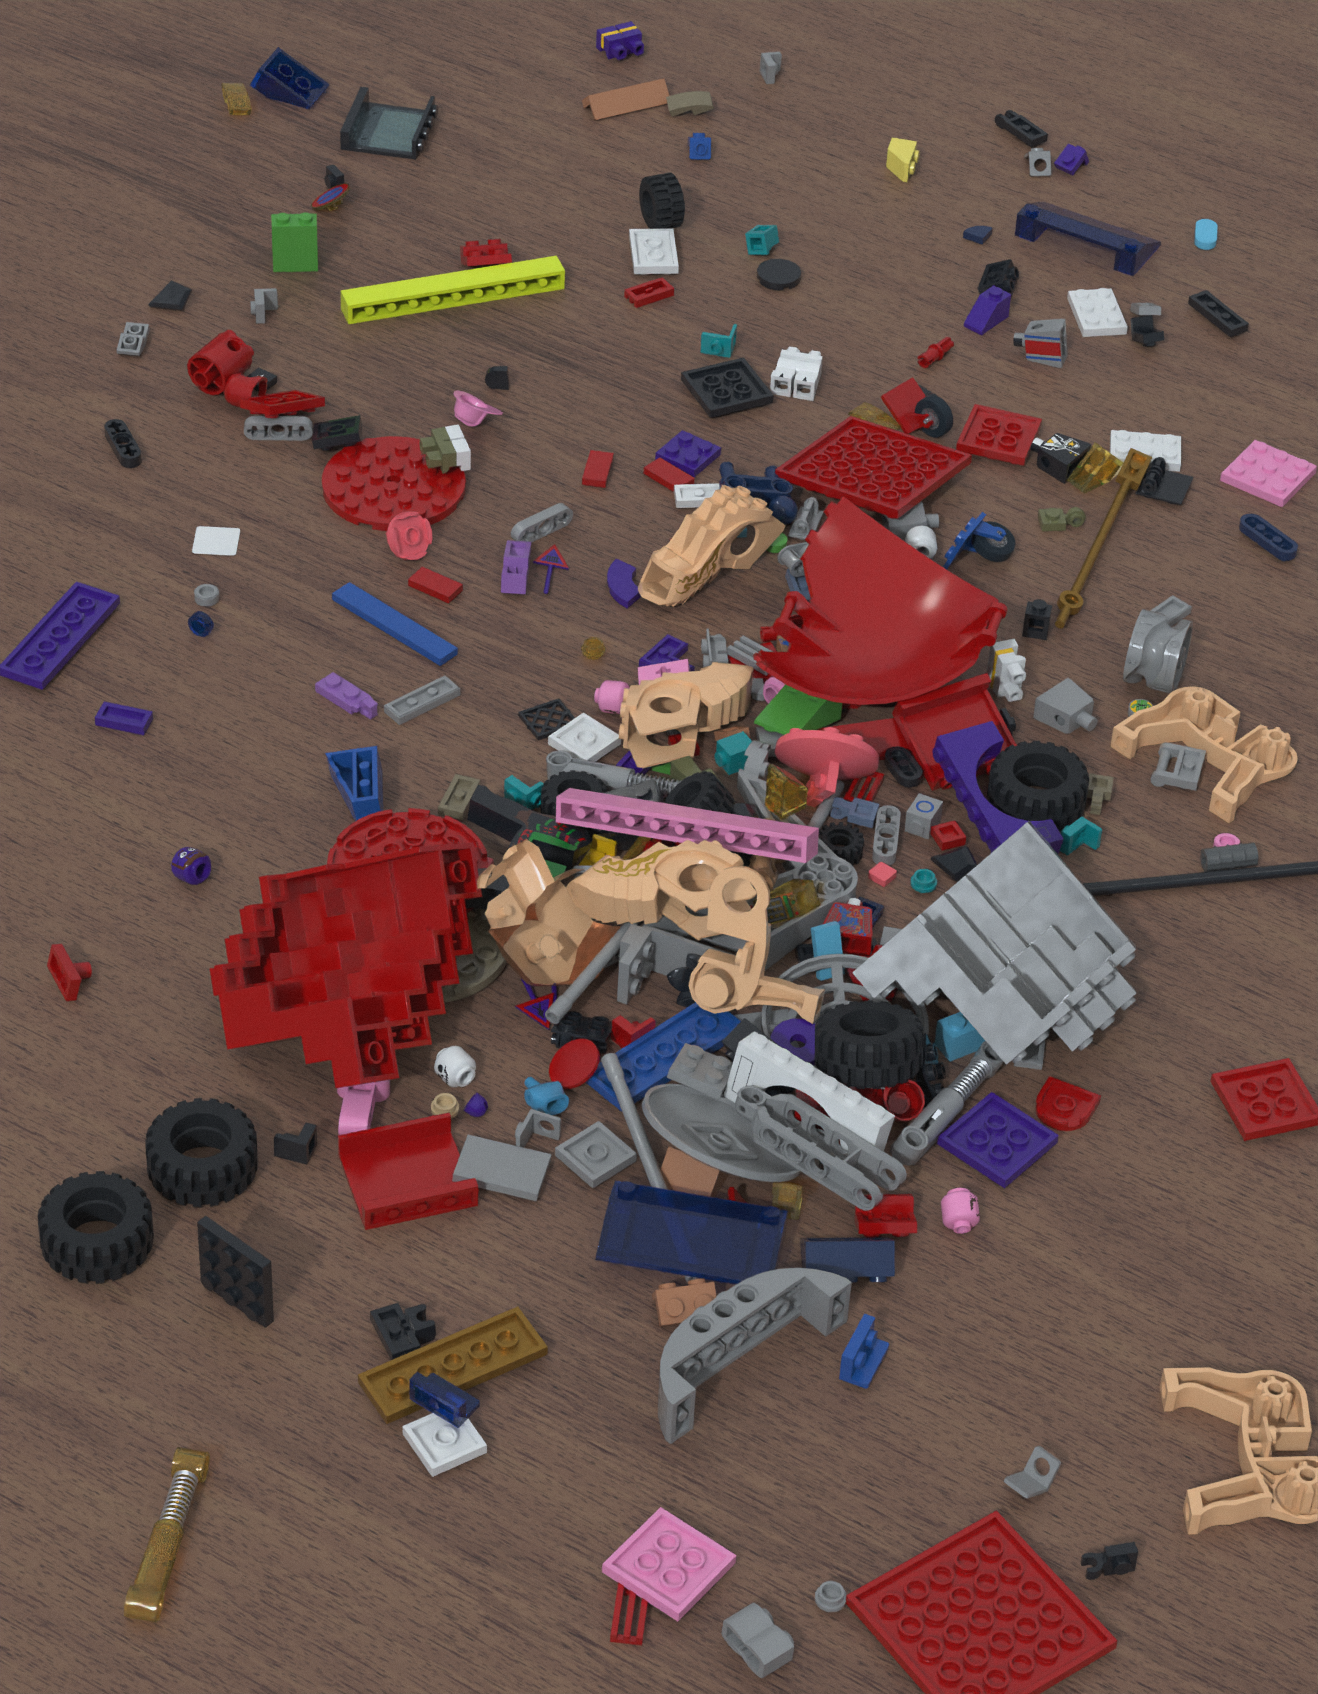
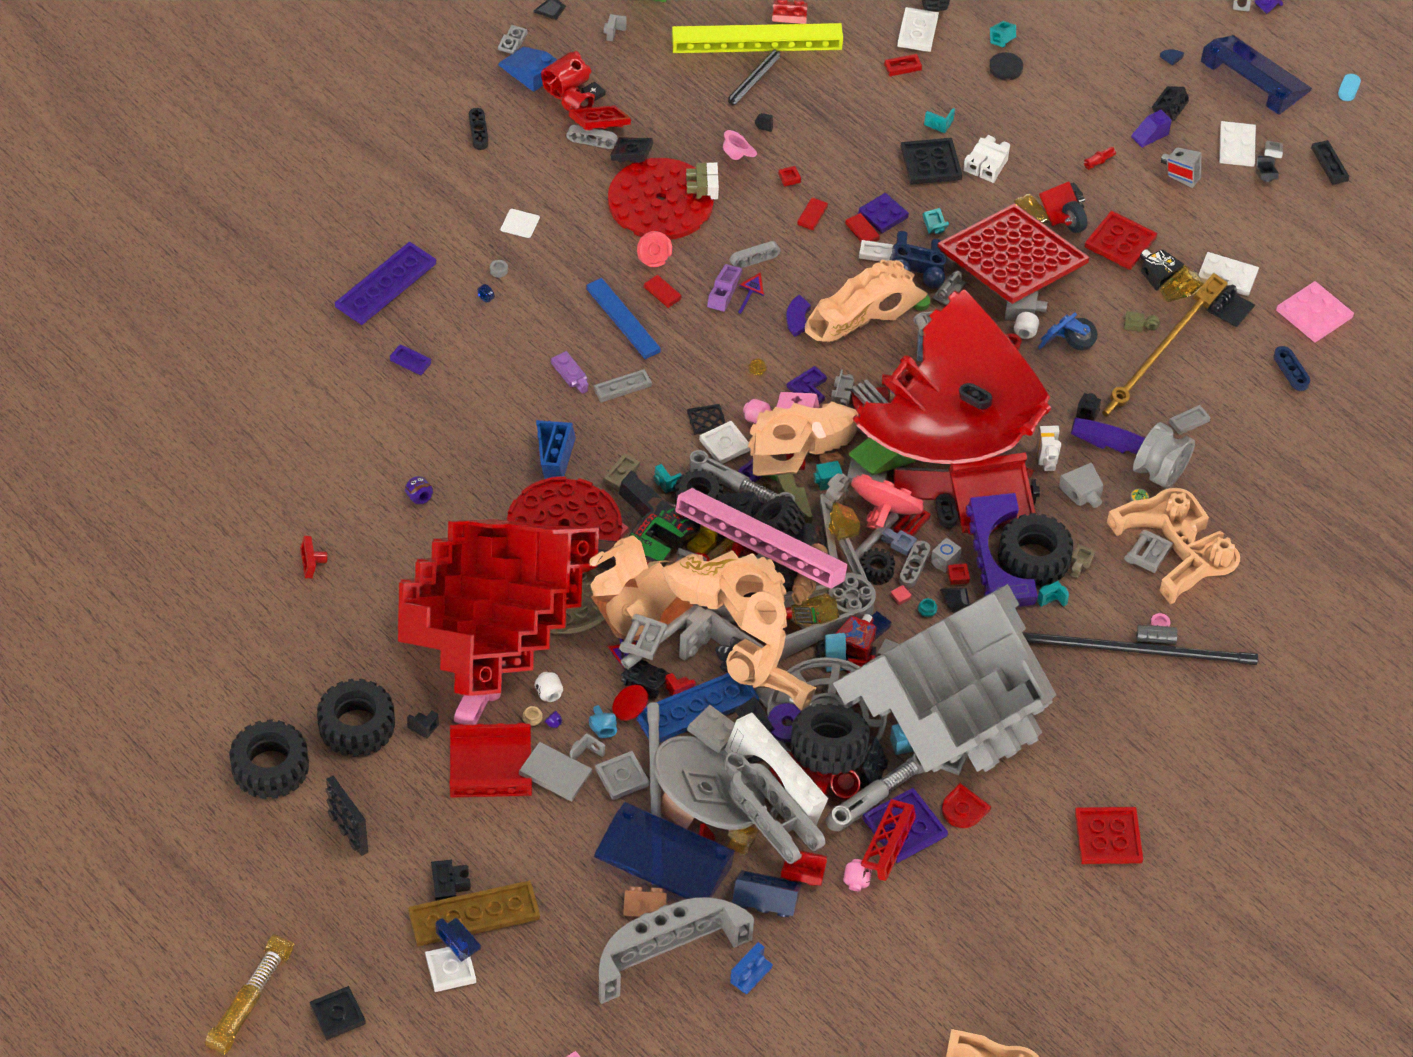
camera: 15 degrees right, 10 degrees up
(165, 364) = (527, 66): none -> blue slope
(303, 1532) = (337, 1013): none -> black plate
(464, 333) = (755, 75): none -> axle
(552, 431) = (789, 176): none -> red plate
(578, 975) = (649, 638): none -> light grey plate
(759, 451) = (935, 221): none -> teal bracket
(895, 624) = (975, 396): none -> black plate
(997, 1155) = (895, 842): none -> red fence
(1068, 647) = (1106, 435): none -> dark purple slope

